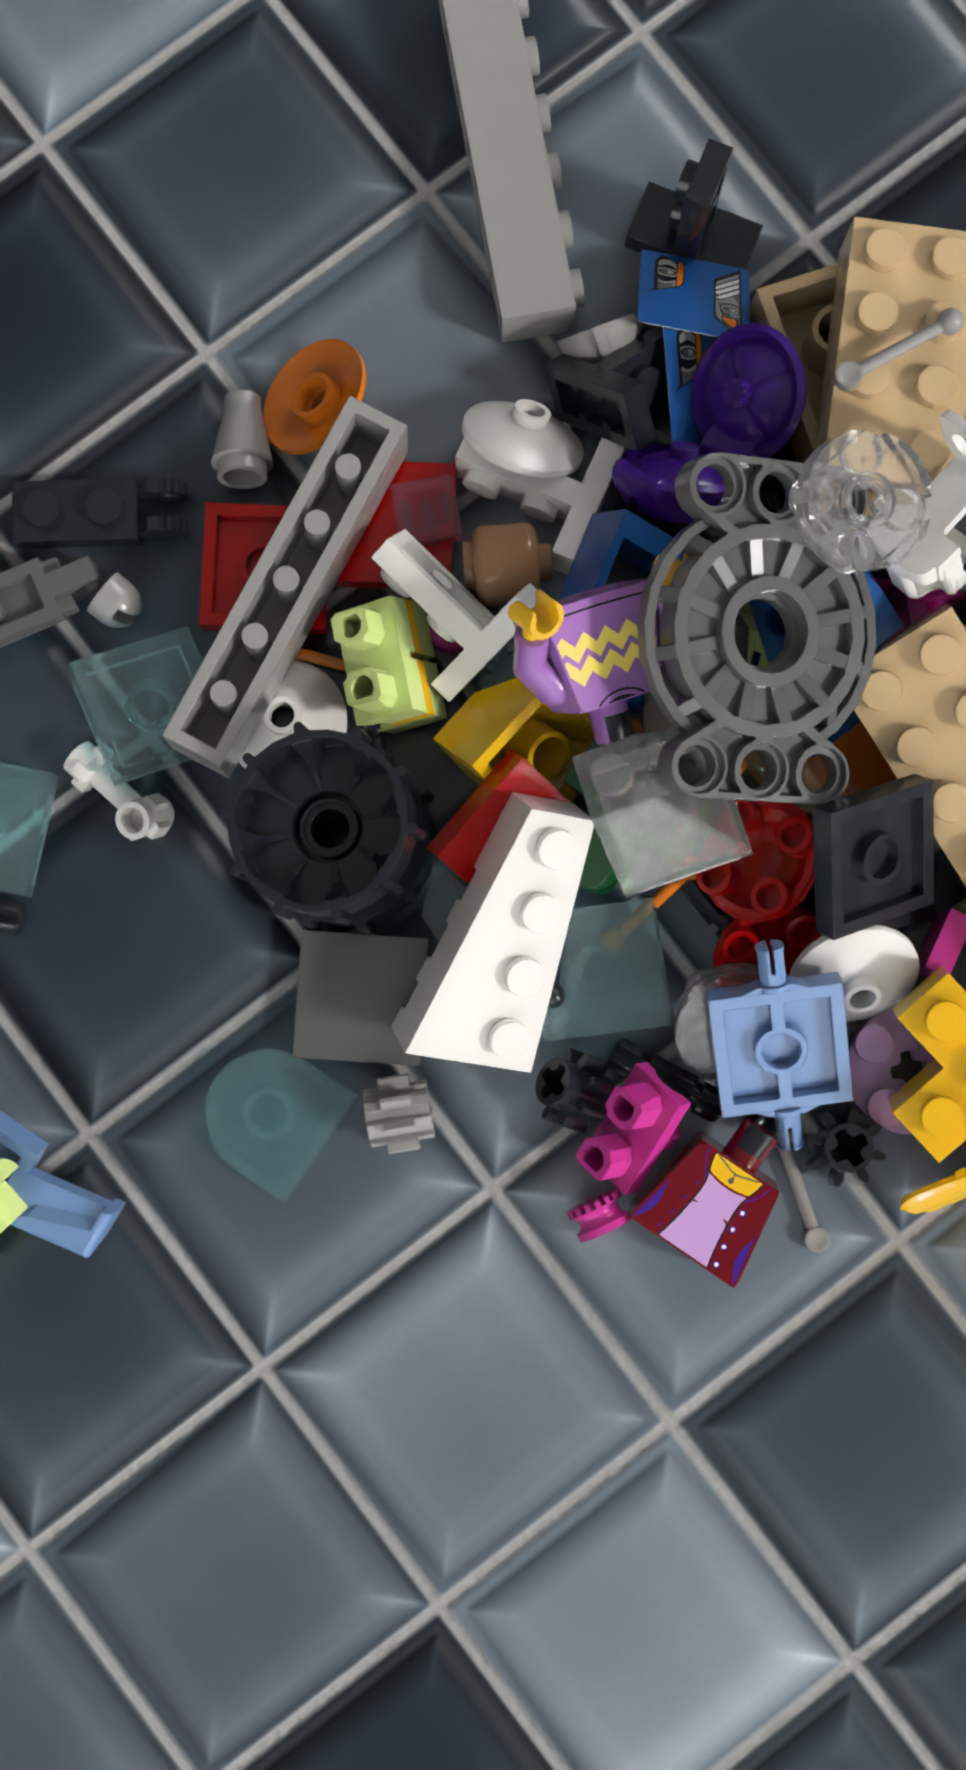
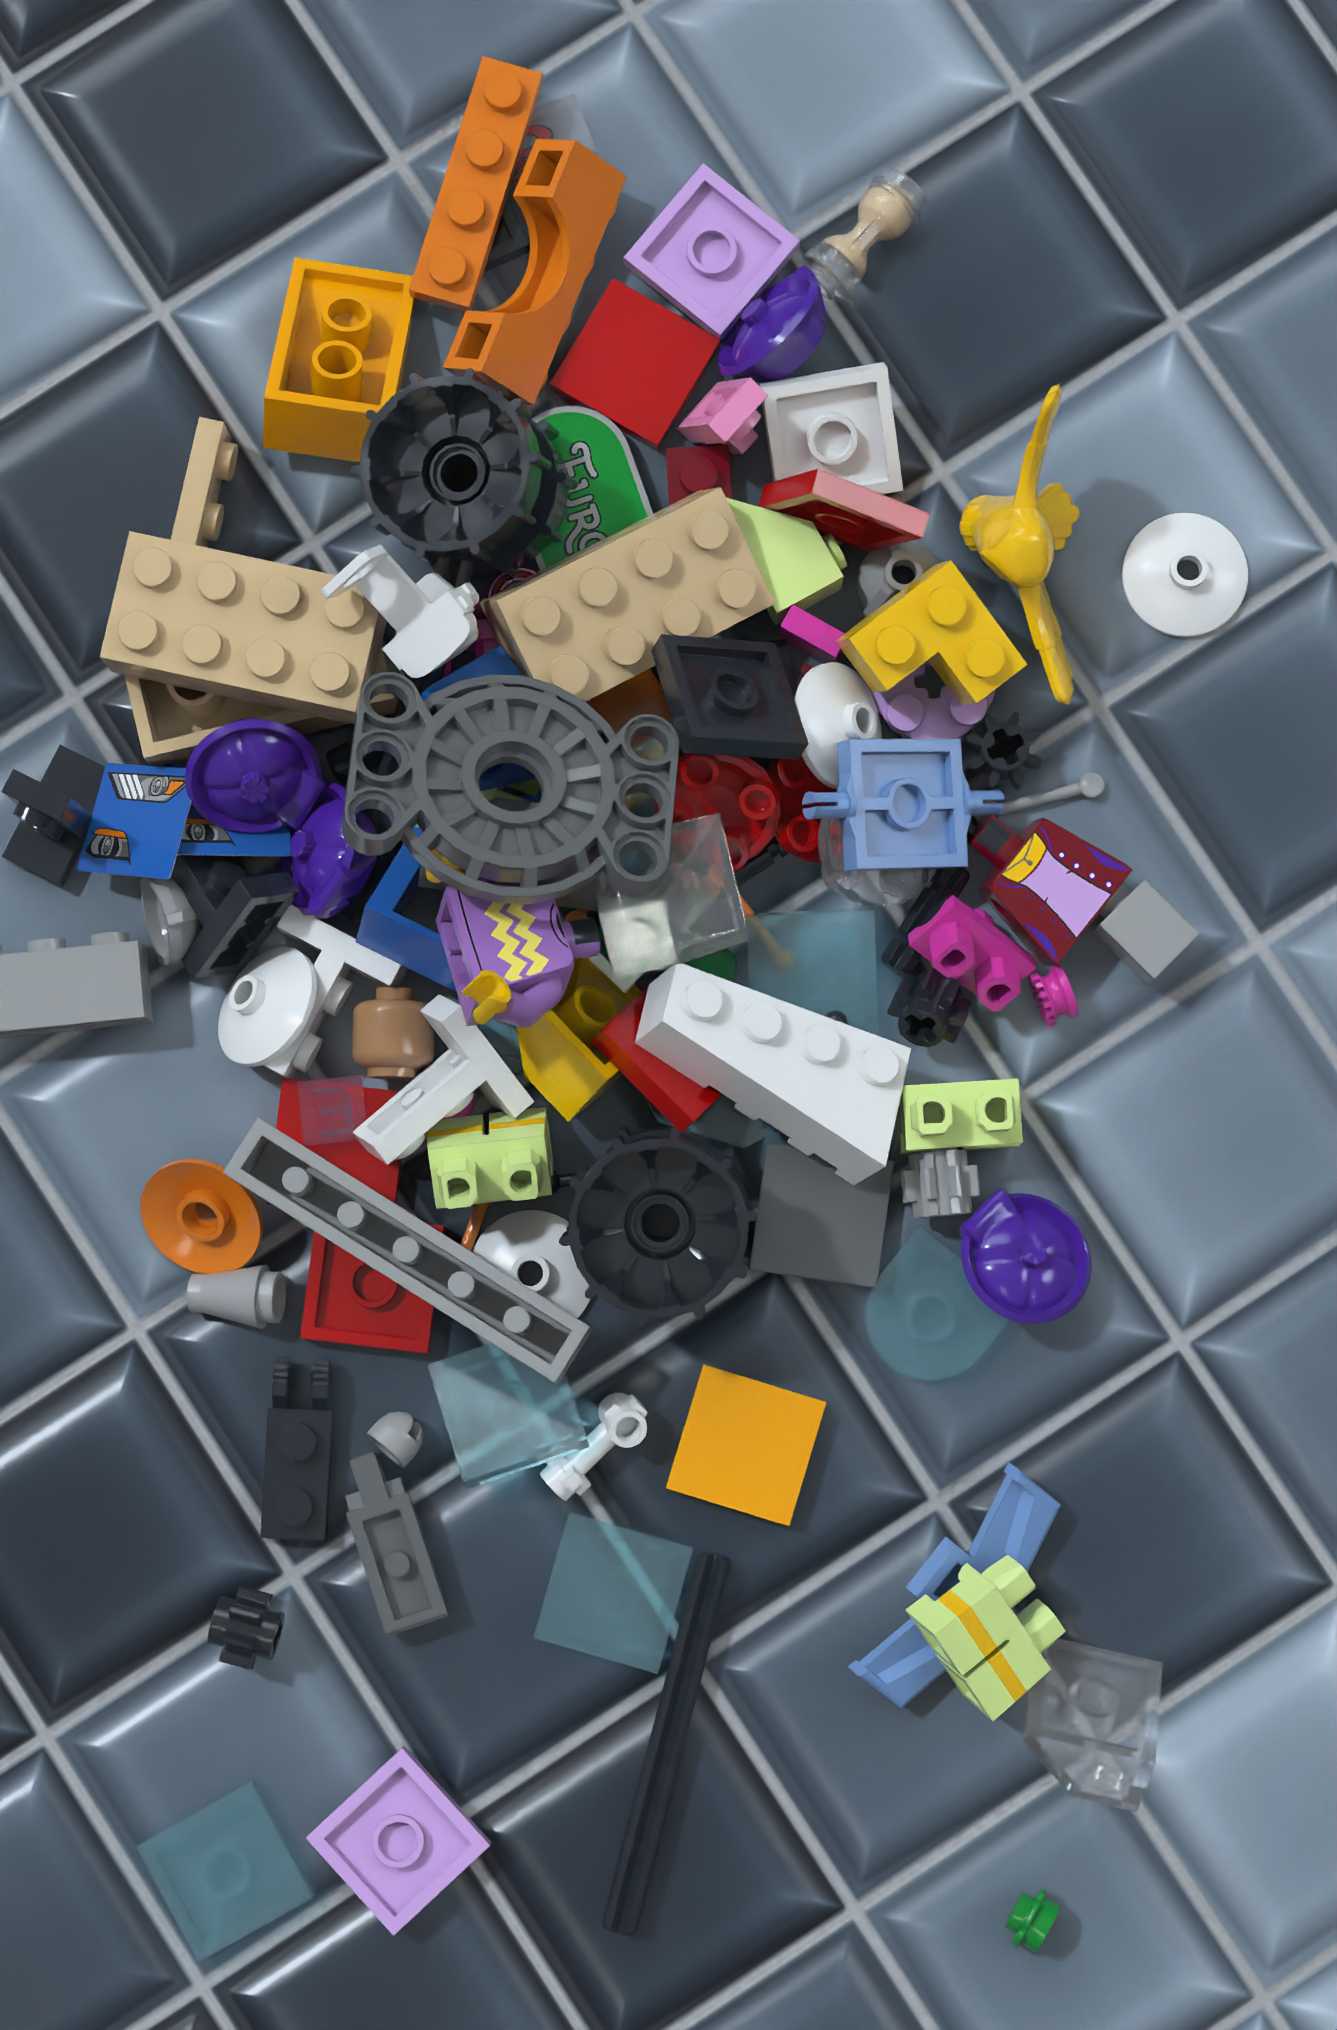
camera: 85 degrees left, 0 degrees up
(130, 940) = (746, 1445): none -> light orange tile
(329, 1205) = (1025, 1257): none -> dark purple piece
(467, 1128) = (959, 1115): none -> yellowish green hips
(672, 1304) = (1143, 930): none -> light grey brick
(825, 507) = (390, 713): clear plate -> none
(849, 373) = (264, 677): light grey hinge -> none

